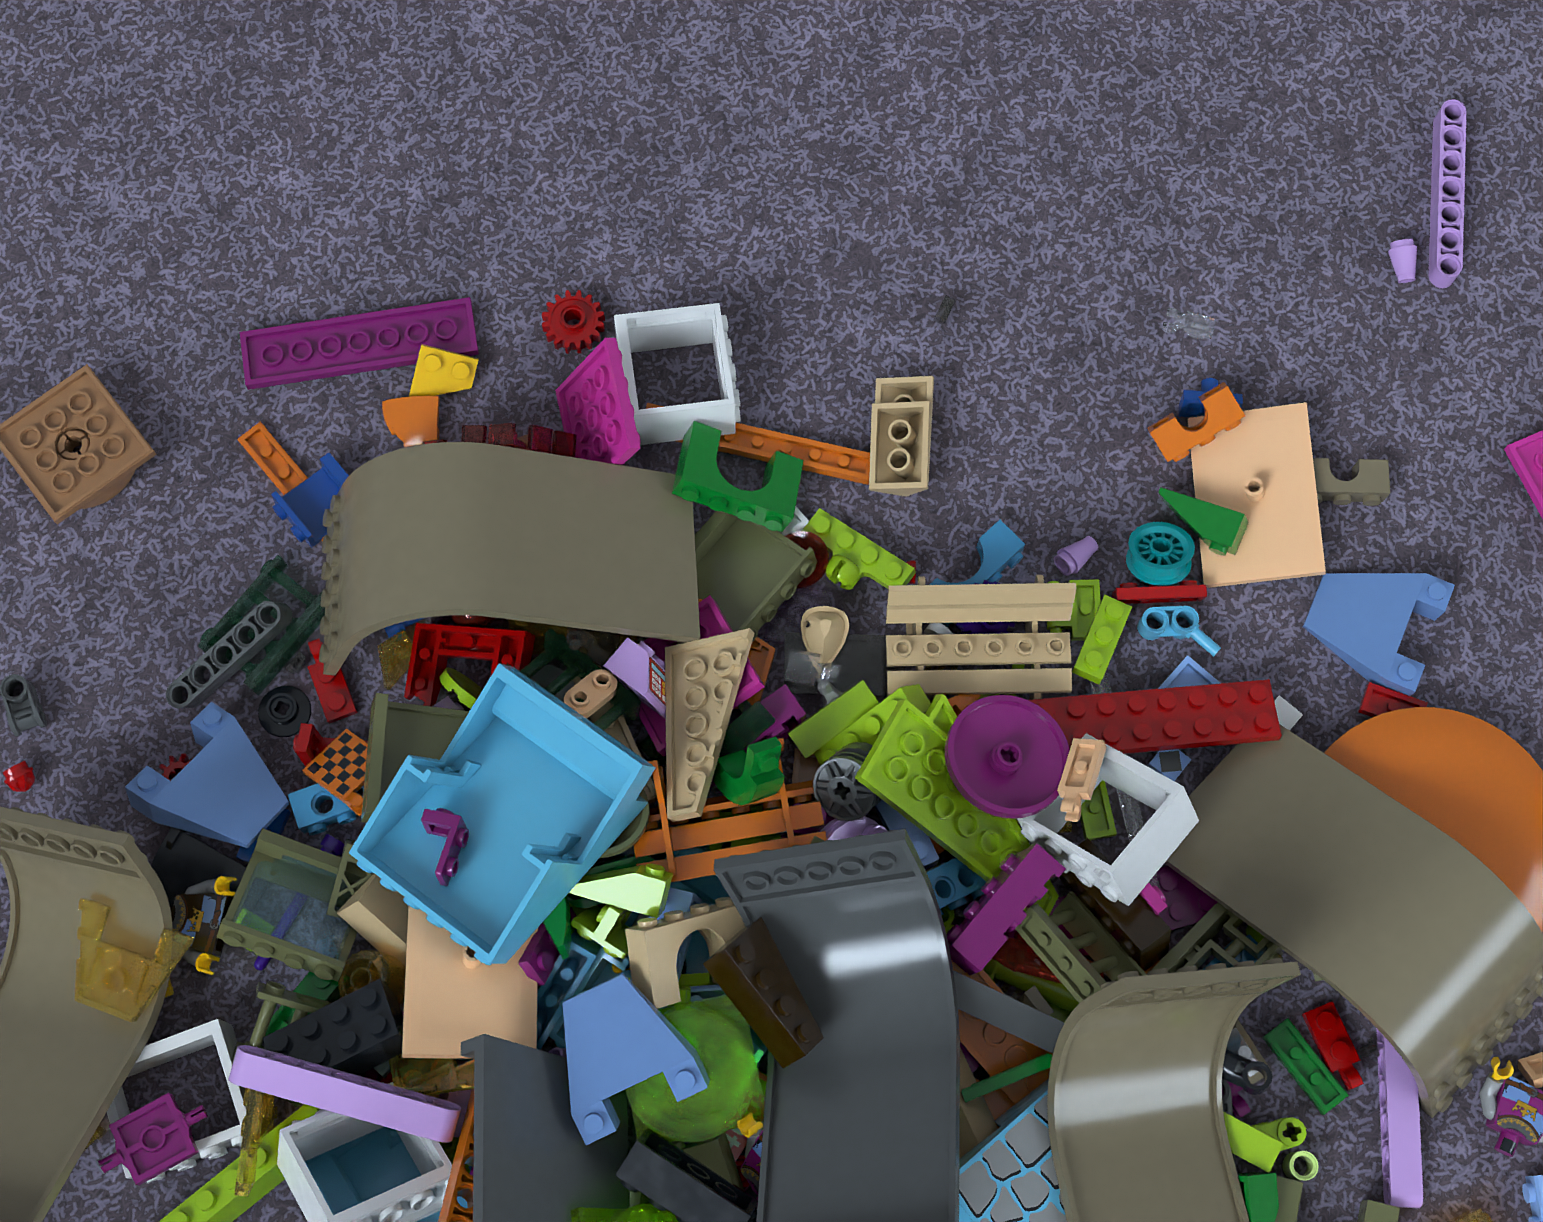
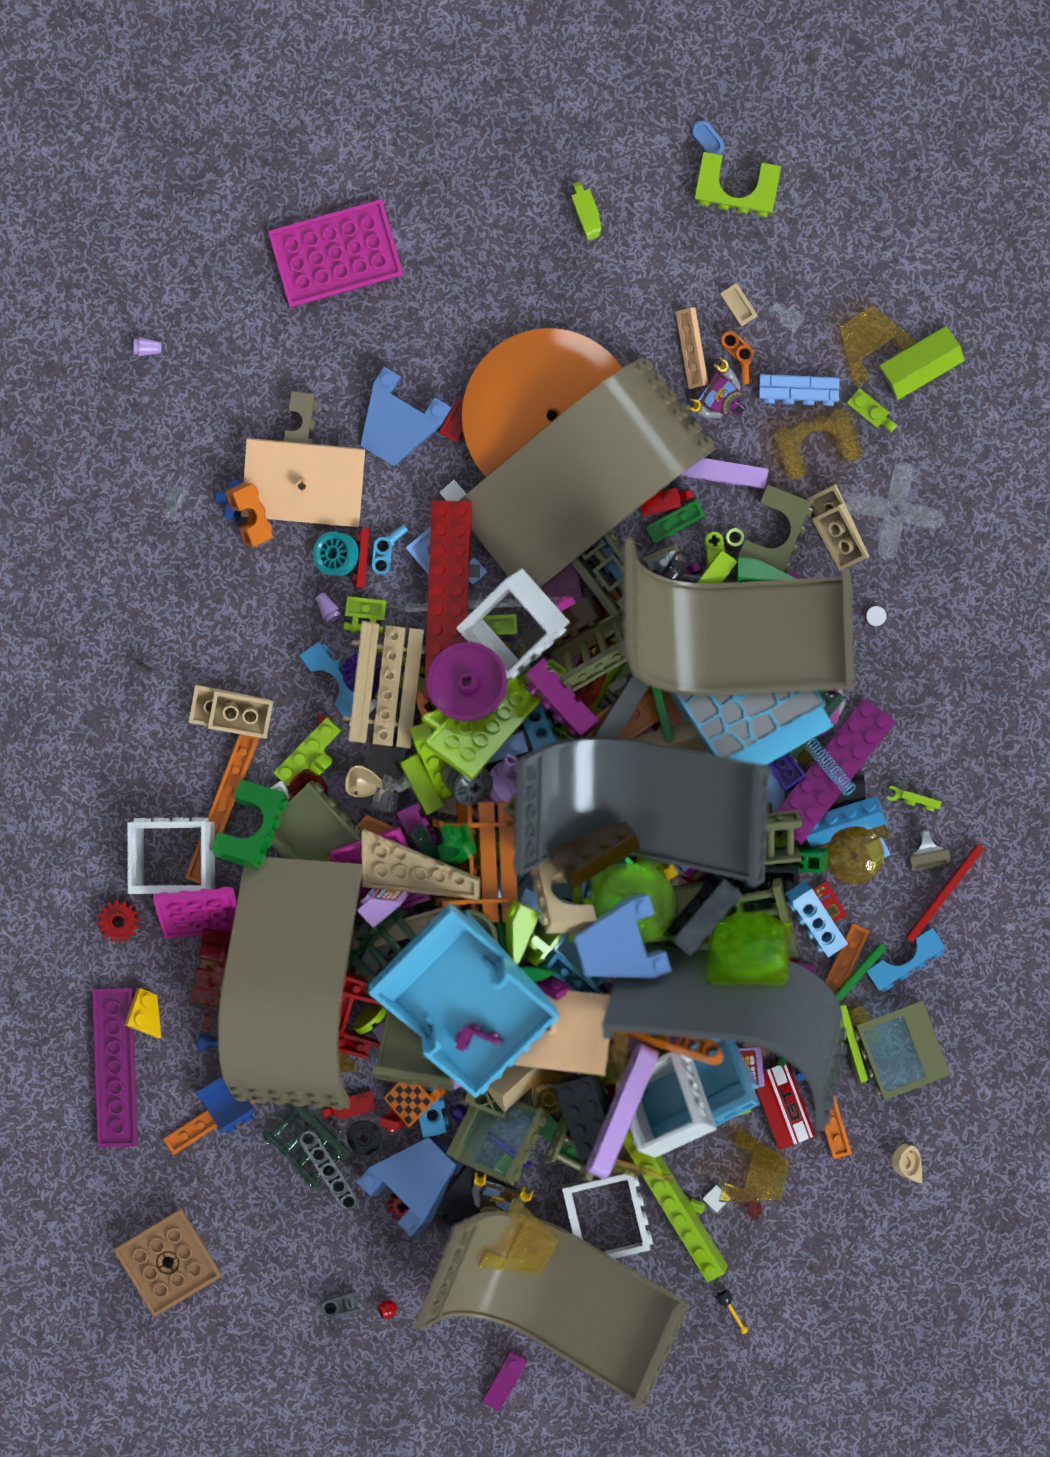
camera: 75 degrees left, 15 degrees up
(153, 1139) = (630, 1230): magenta plate -> none
(413, 418) = (177, 1035): orange brick -> none
(593, 693) = (390, 937): light nougat plate -> none
(1080, 775) = (486, 639): light nougat plate -> none
(1101, 639) = (389, 602): lime plate -> none
(1214, 525) = (319, 518): green slope -> none
(1442, 204) = (93, 300): lavender beam -> none

